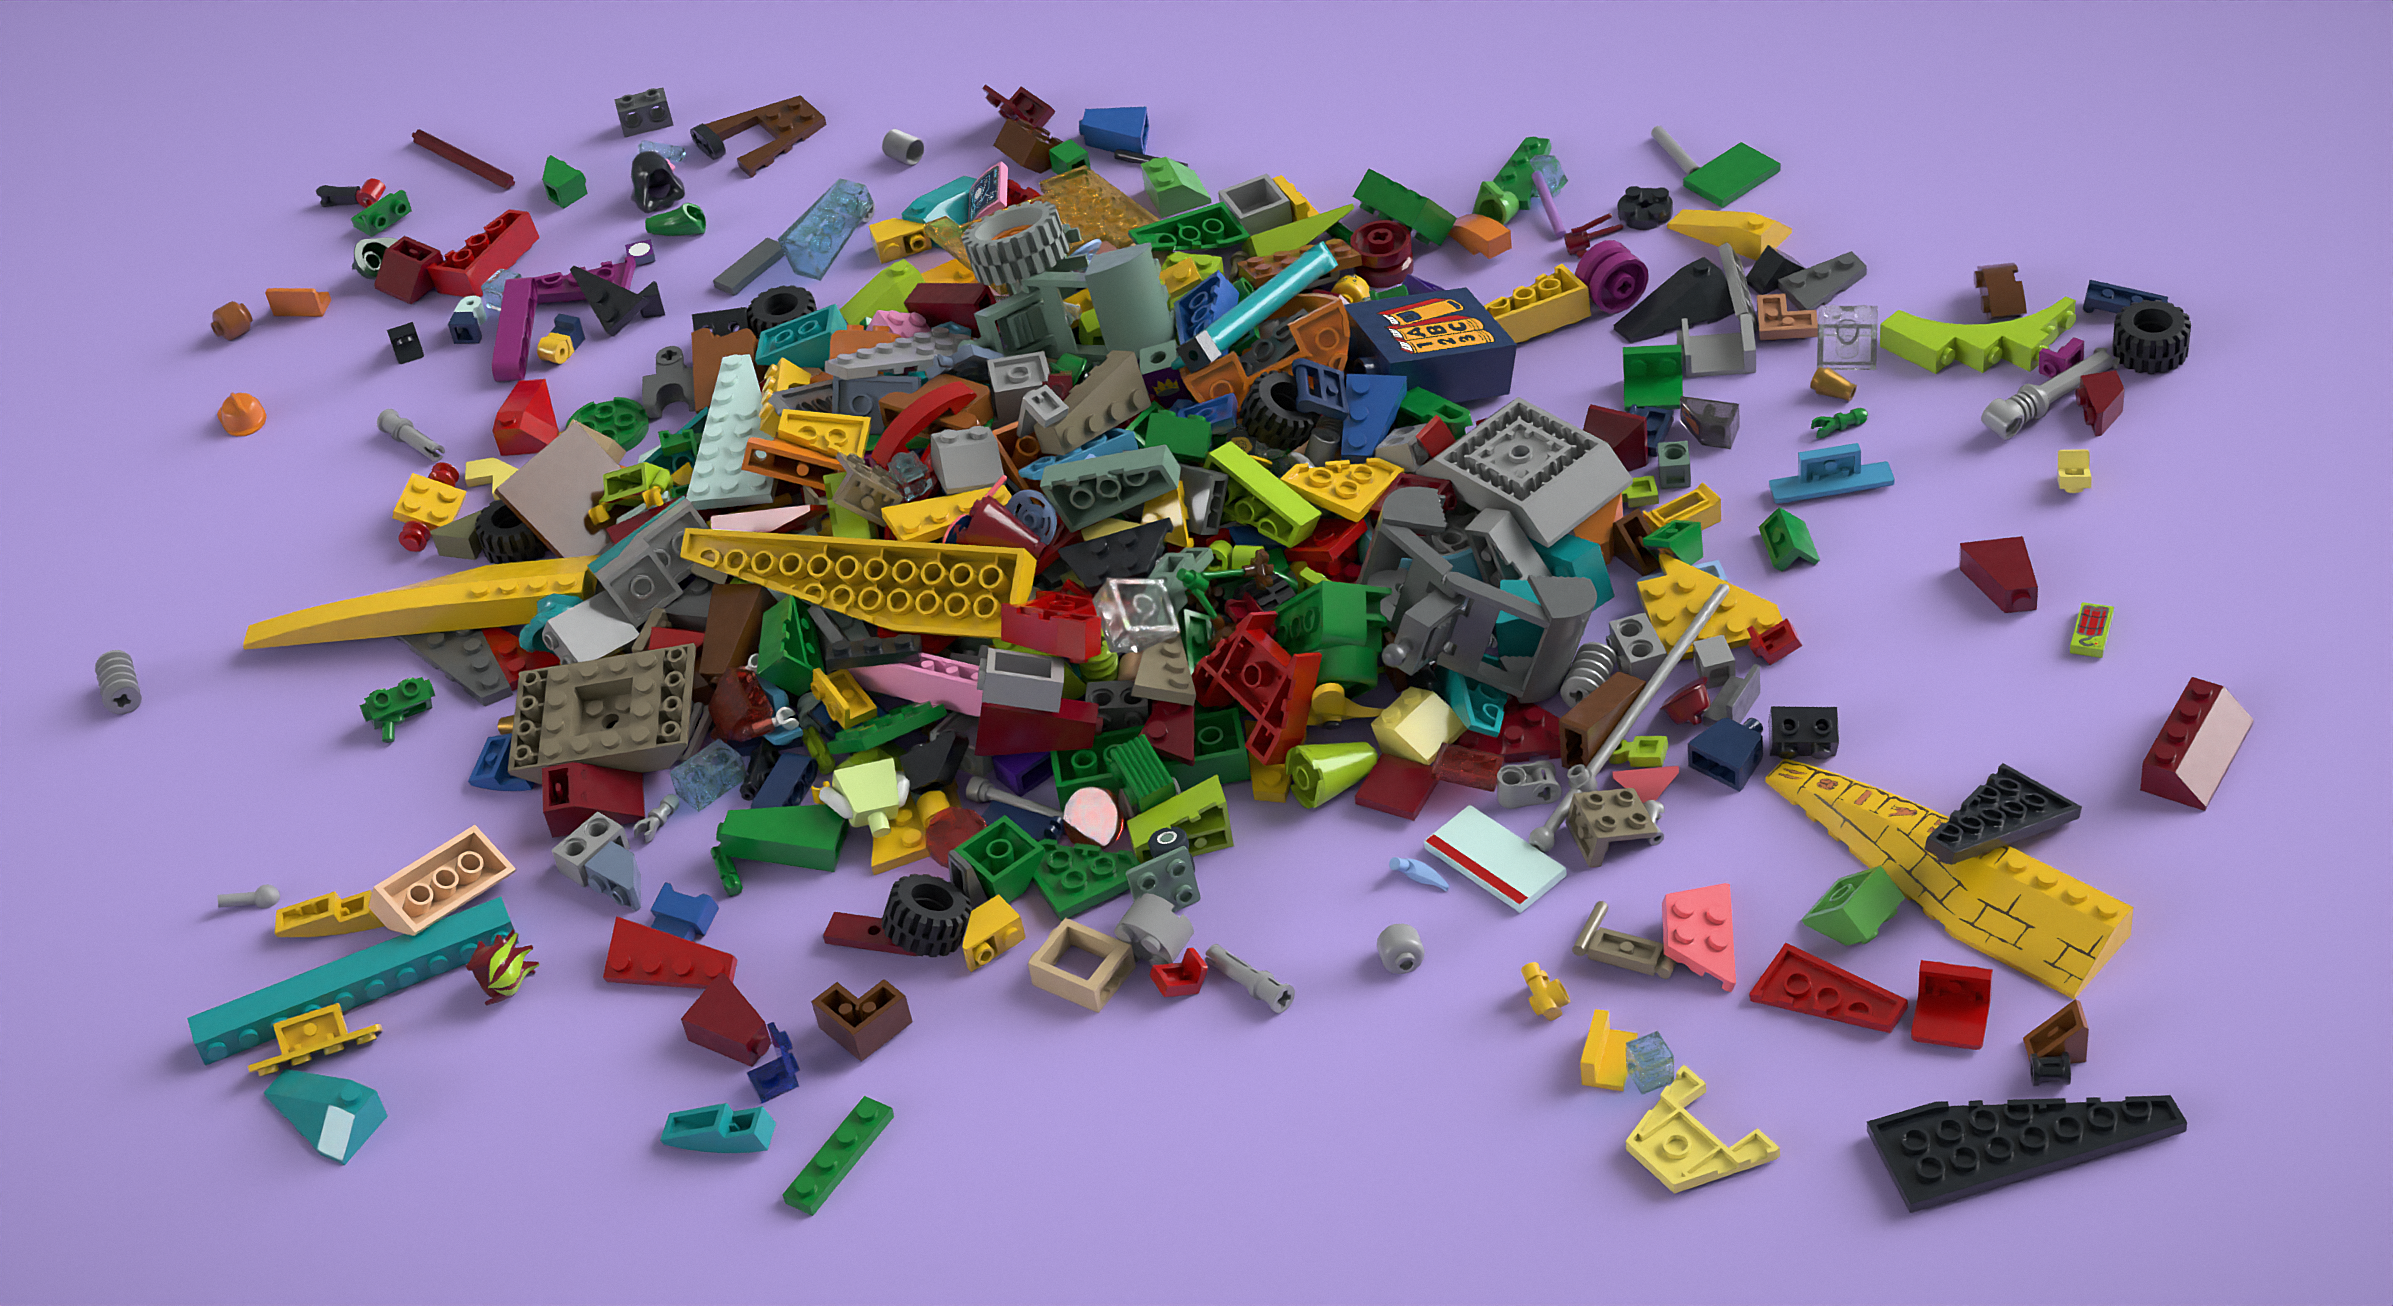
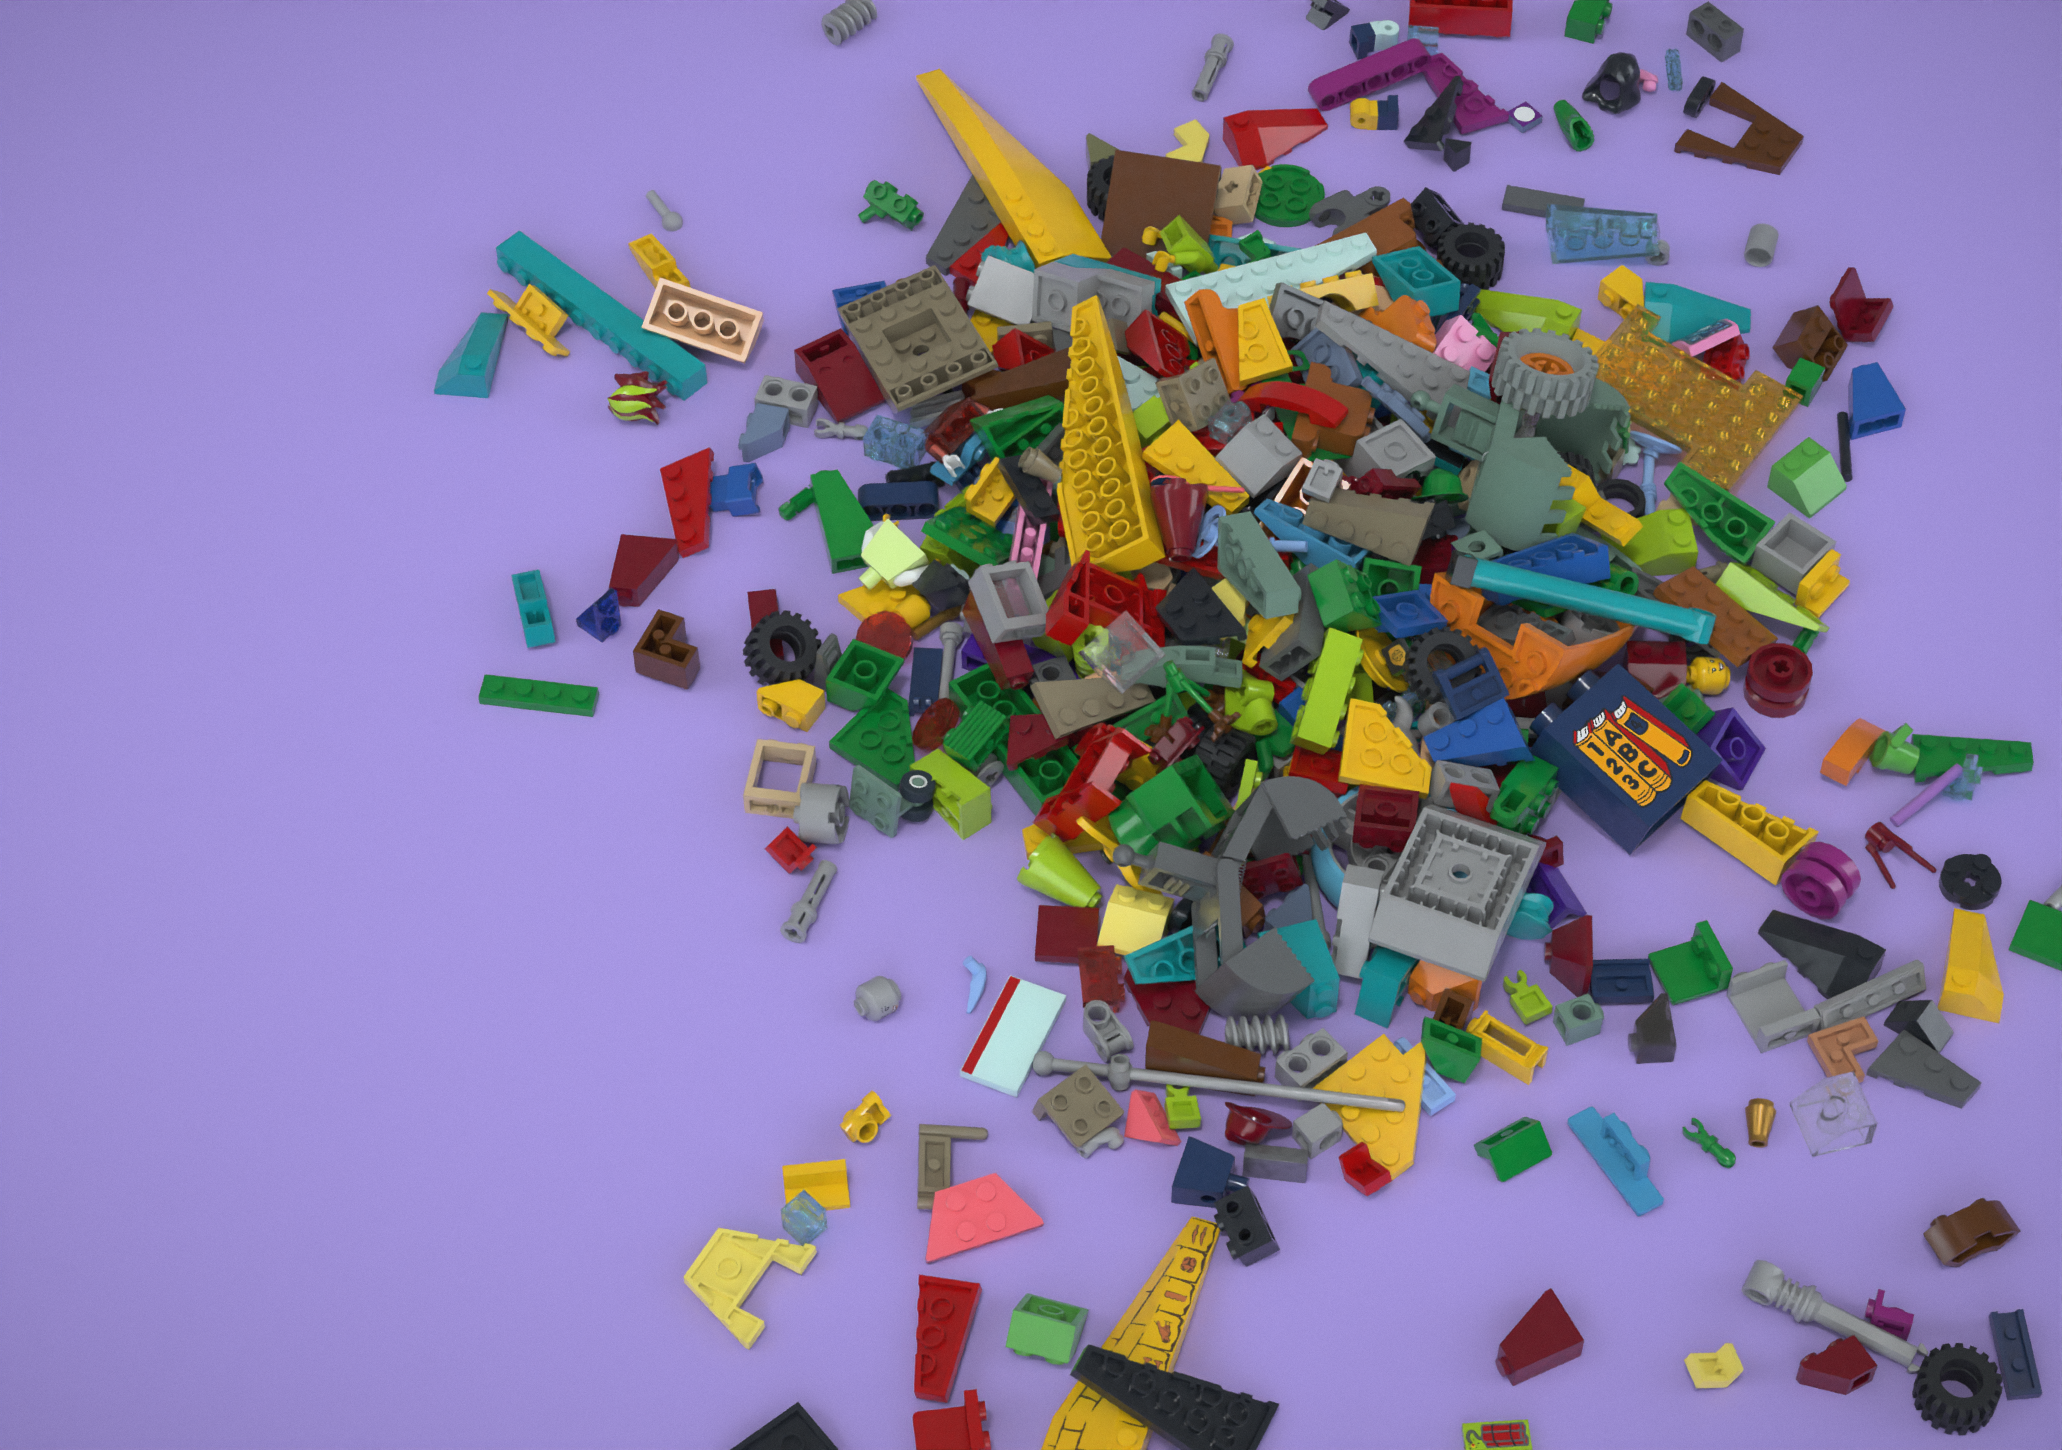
camera: 60 degrees right, 10 degrees up
(428, 505) = (1129, 118): yellow plate -> none
(858, 626) = (1038, 464): none -> dark tan cone
(1404, 206) = (1849, 674): green wedge -> none
(1976, 345) = (1880, 1241): lime arch -> none

